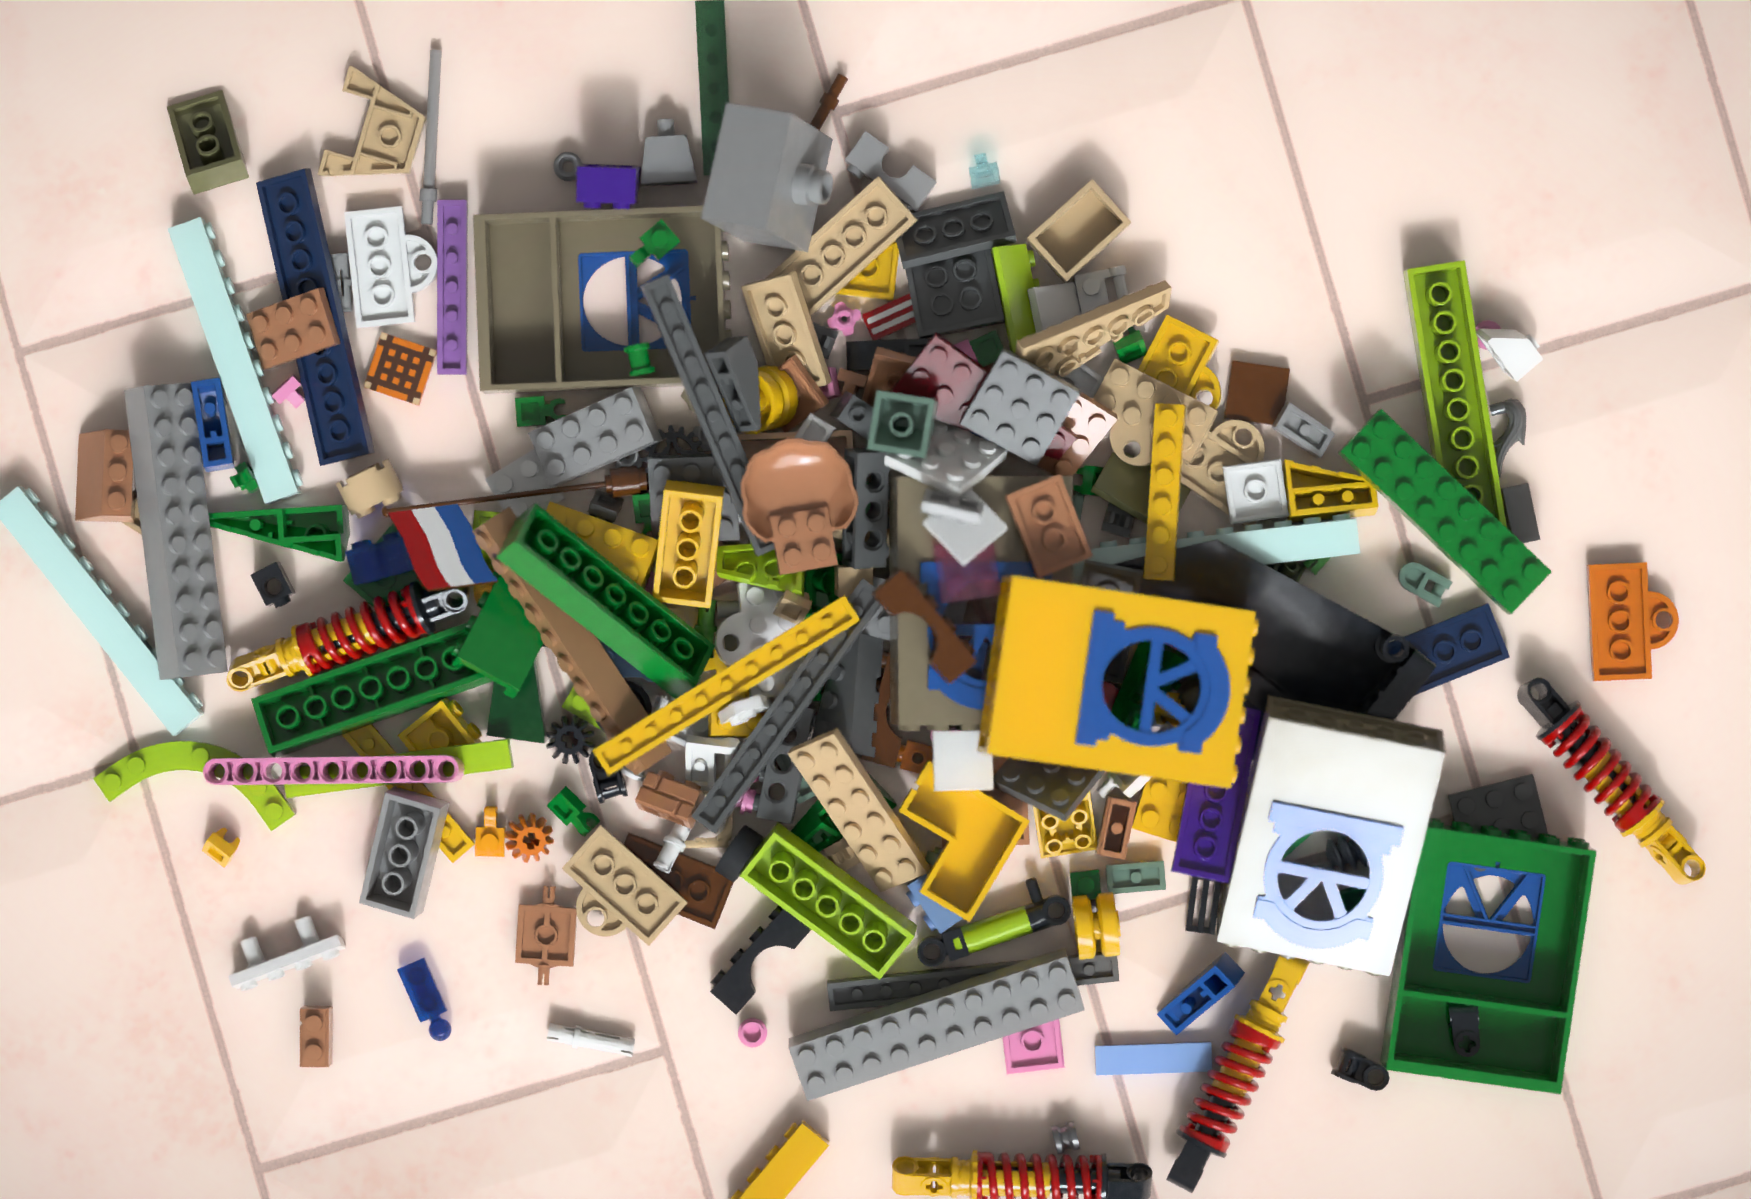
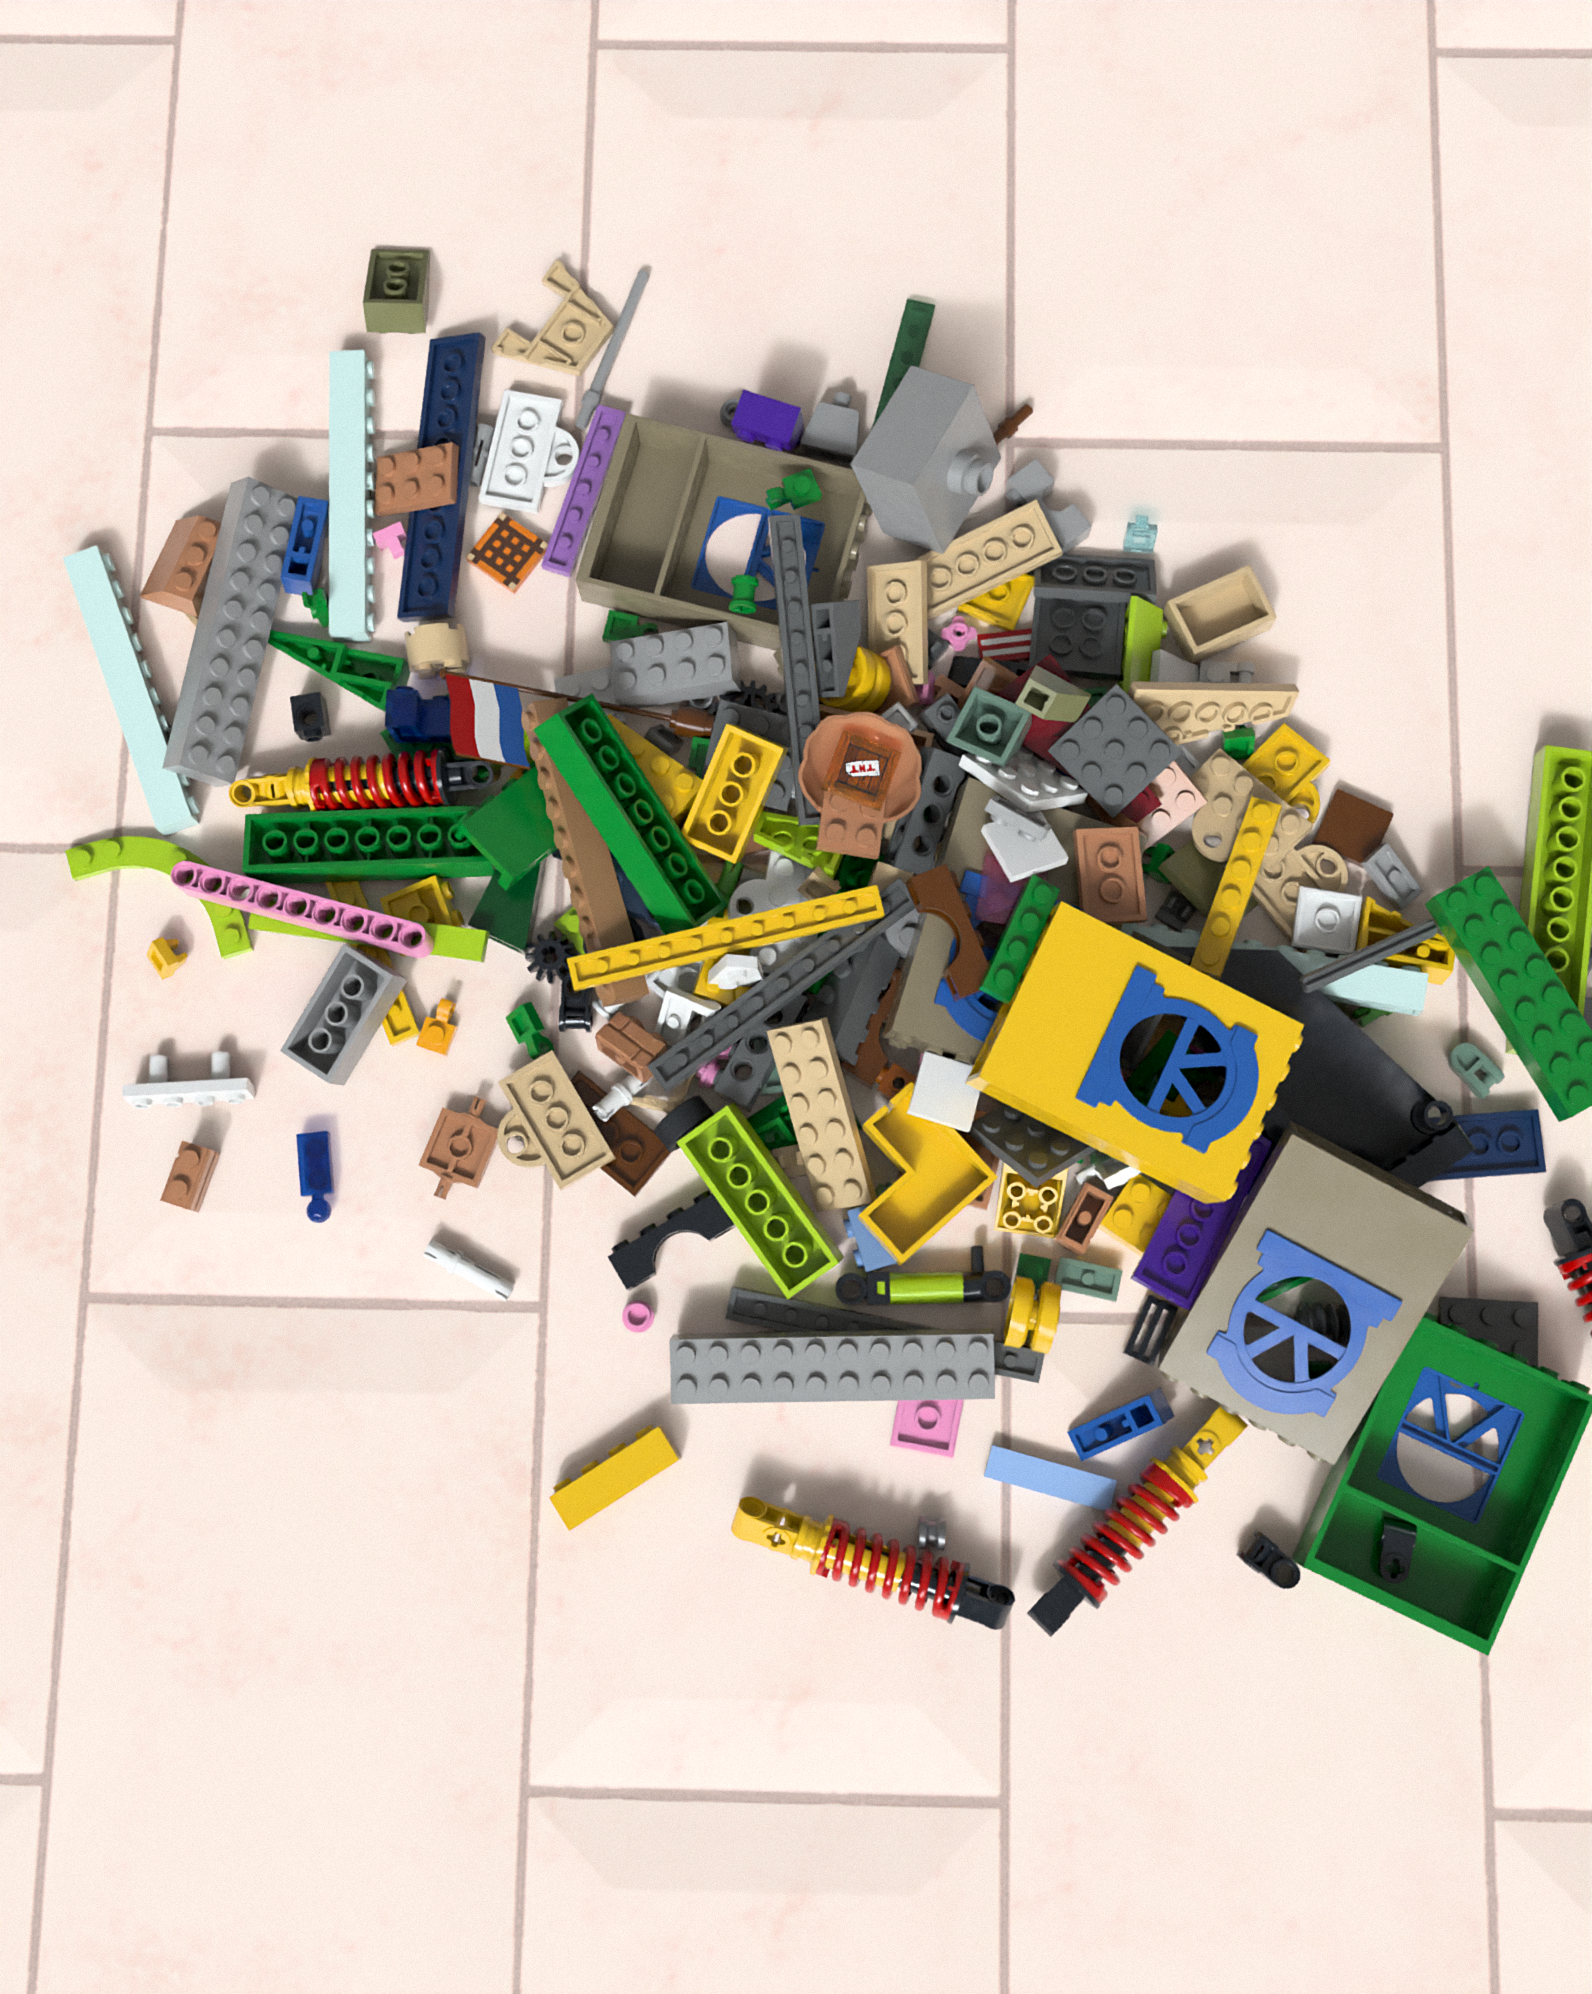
camera: 20 degrees right, 10 degrees down
(533, 826) = (466, 1045): orange gear -> none
(798, 494) = (861, 770): none -> clear orange tile
(948, 380) = (1052, 697): none -> olive slope
(985, 614) = (1019, 939): none -> green plate
(1298, 519) = (1368, 956): none -> dark grey axle

